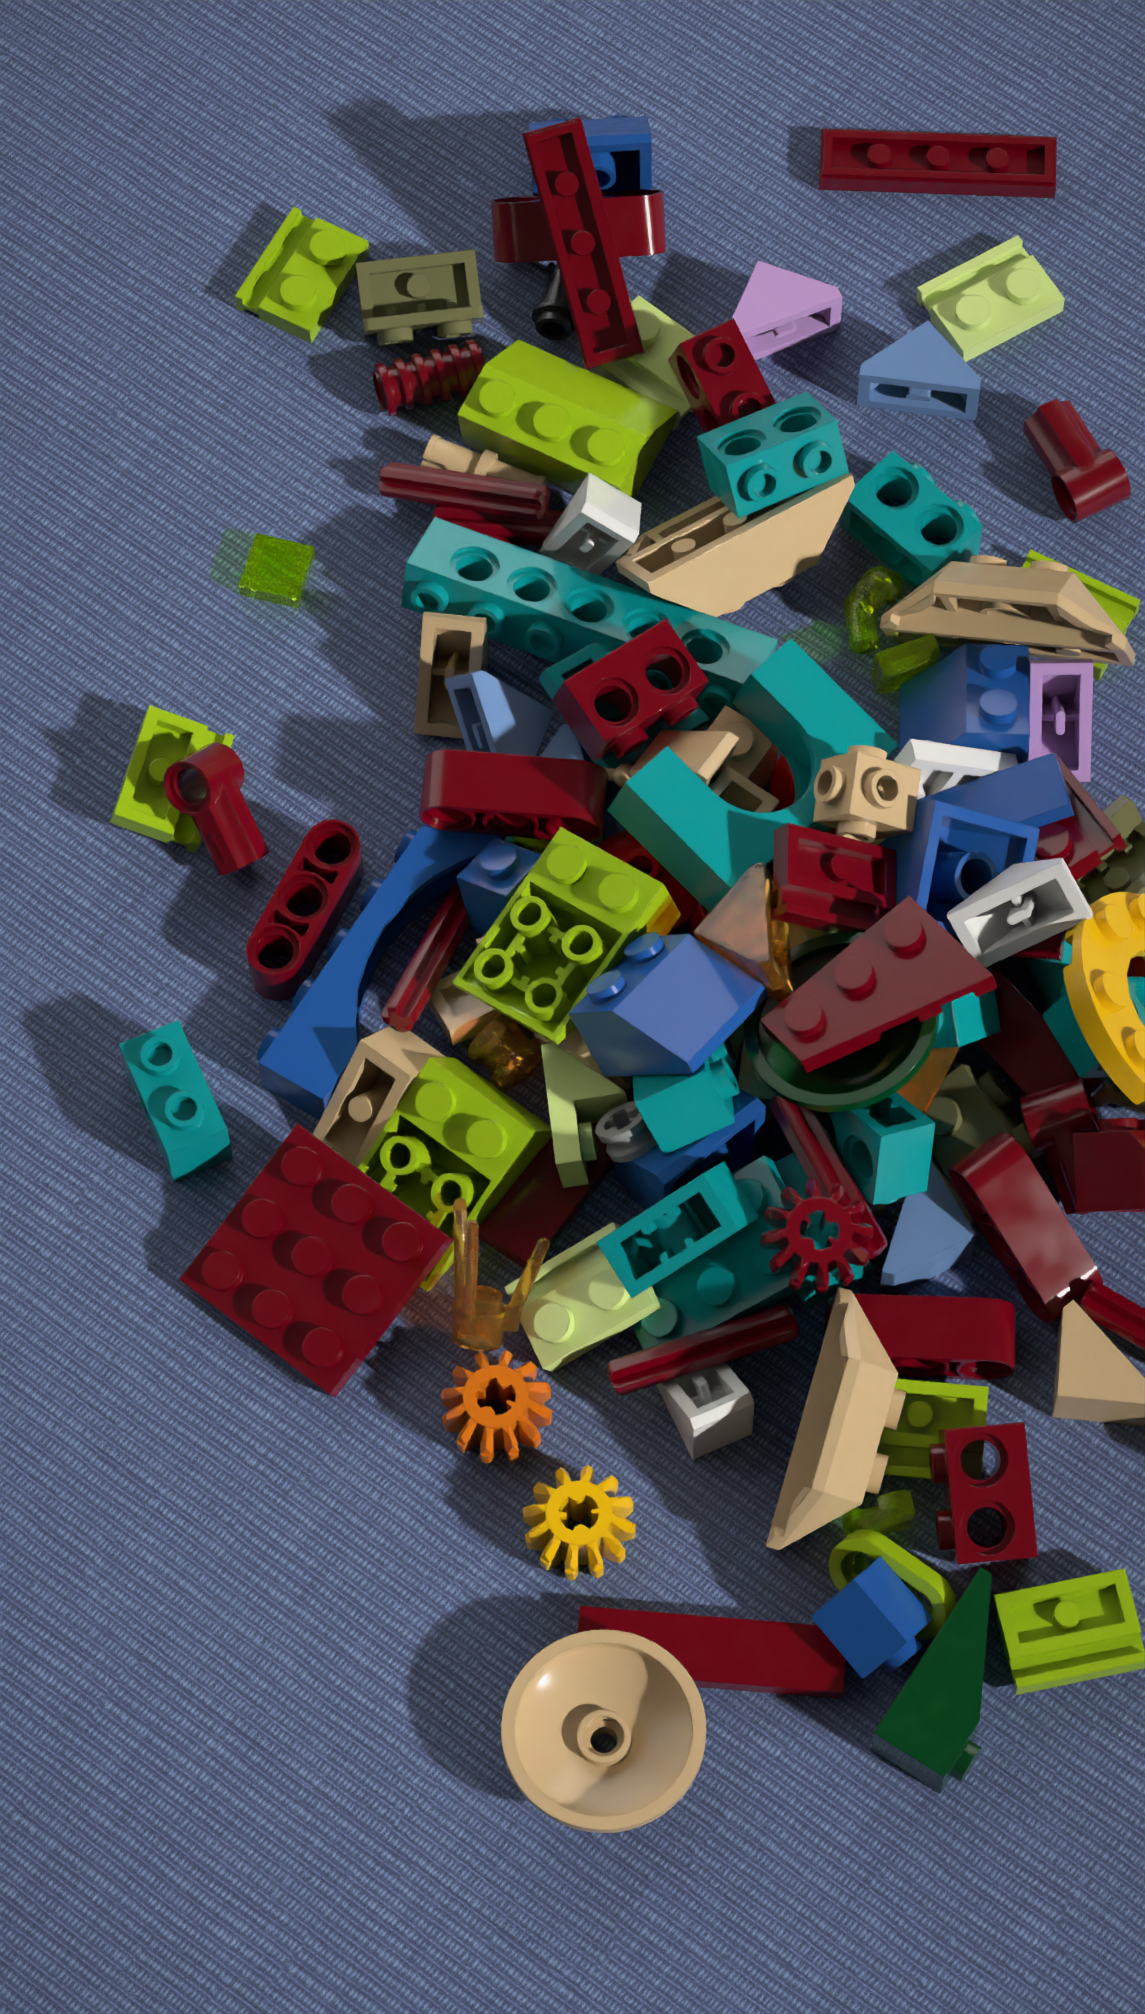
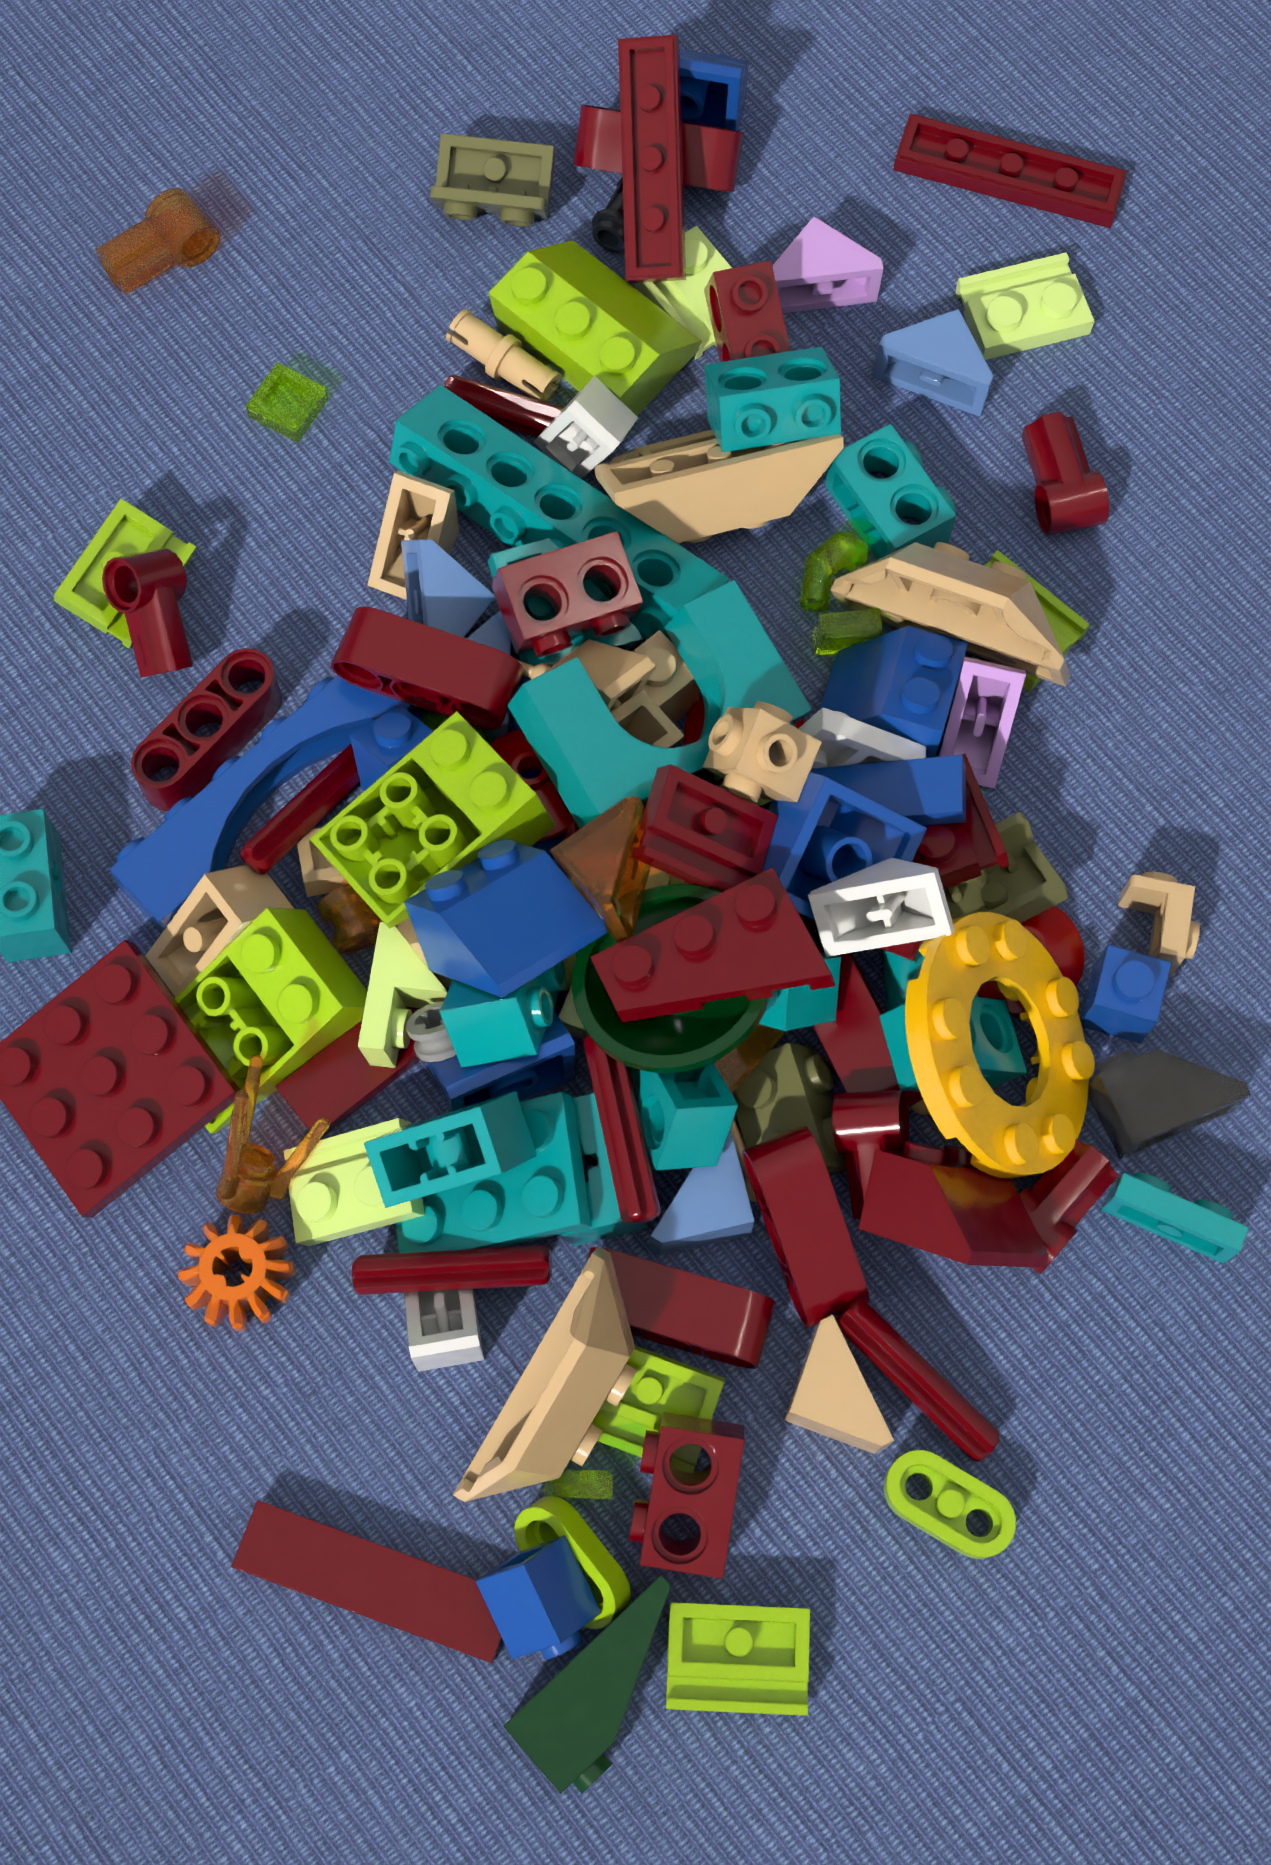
camera: 10 degrees right, 5 degrees up
(106, 429) = (170, 234): none -> clear orange piece
(302, 275) = (394, 137): lime plate -> none
(428, 377) = (475, 255): dark red piece -> none
(464, 491) = (478, 367): dark red axle -> none
(576, 1501) = (272, 1437): yellow gear -> none
(596, 1687) = (183, 1638): tan dish -> none
(832, 1220) = (604, 1181): dark red gear -> none

